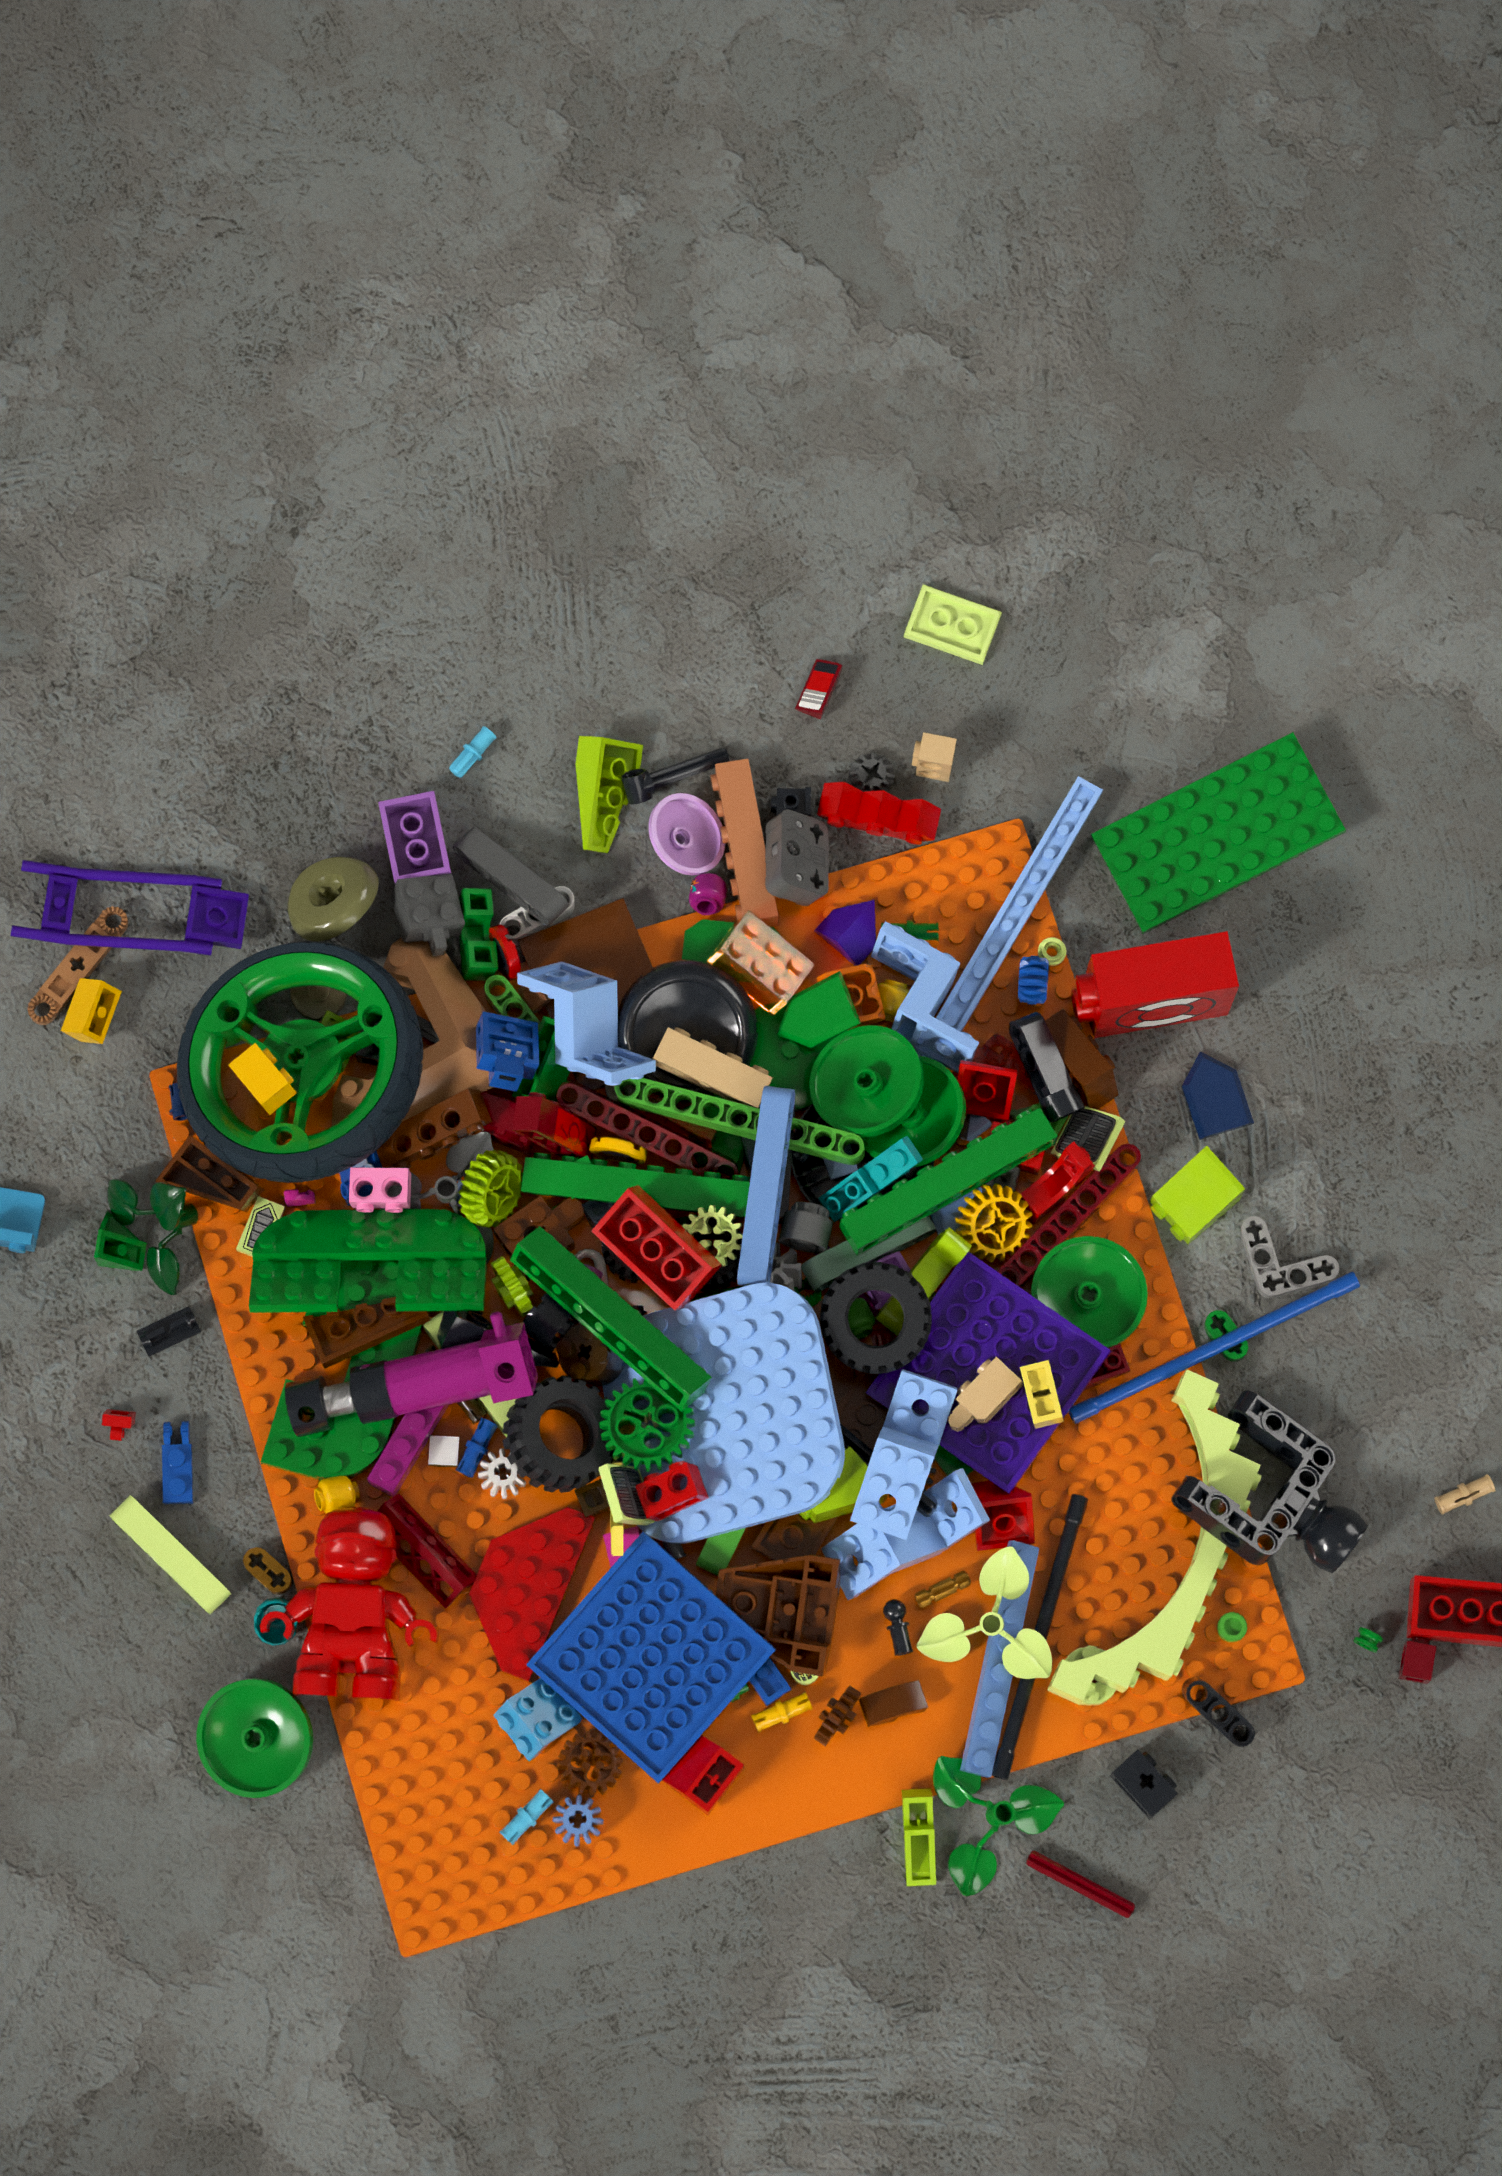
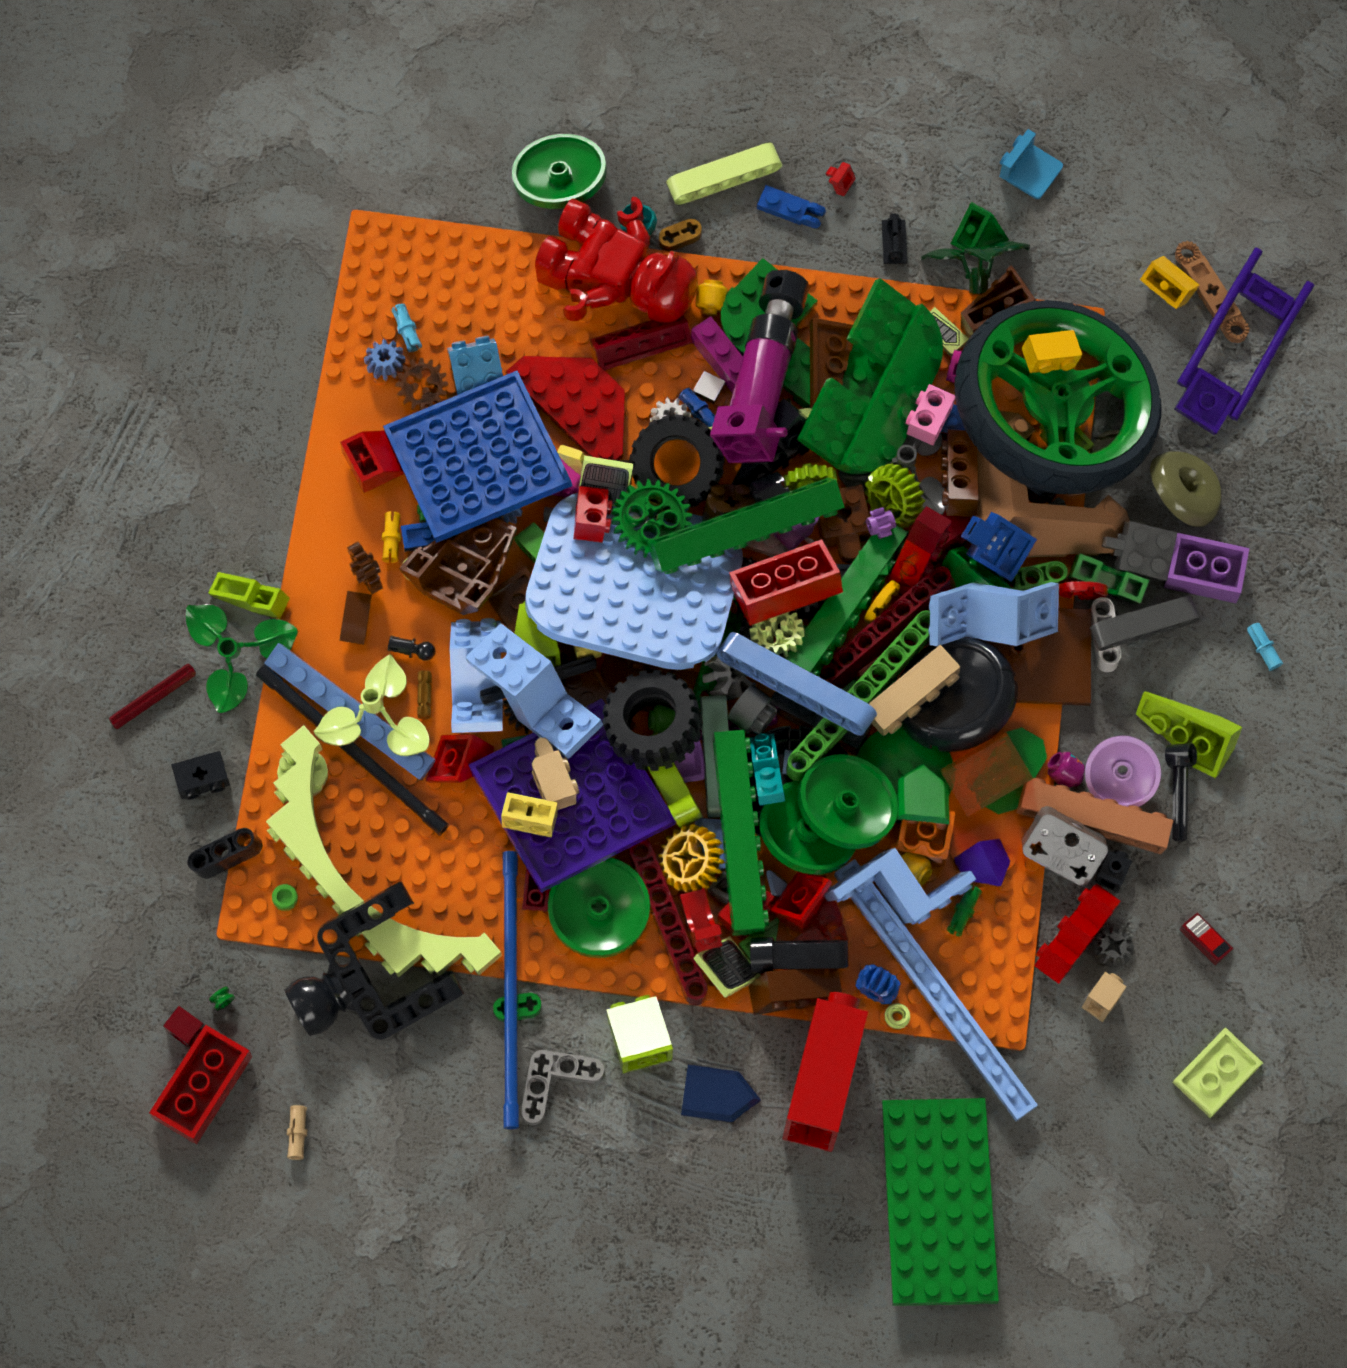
camera: 115 degrees right, 5 degrees down
(533, 1186) = (881, 523): none -> medium lavender gear

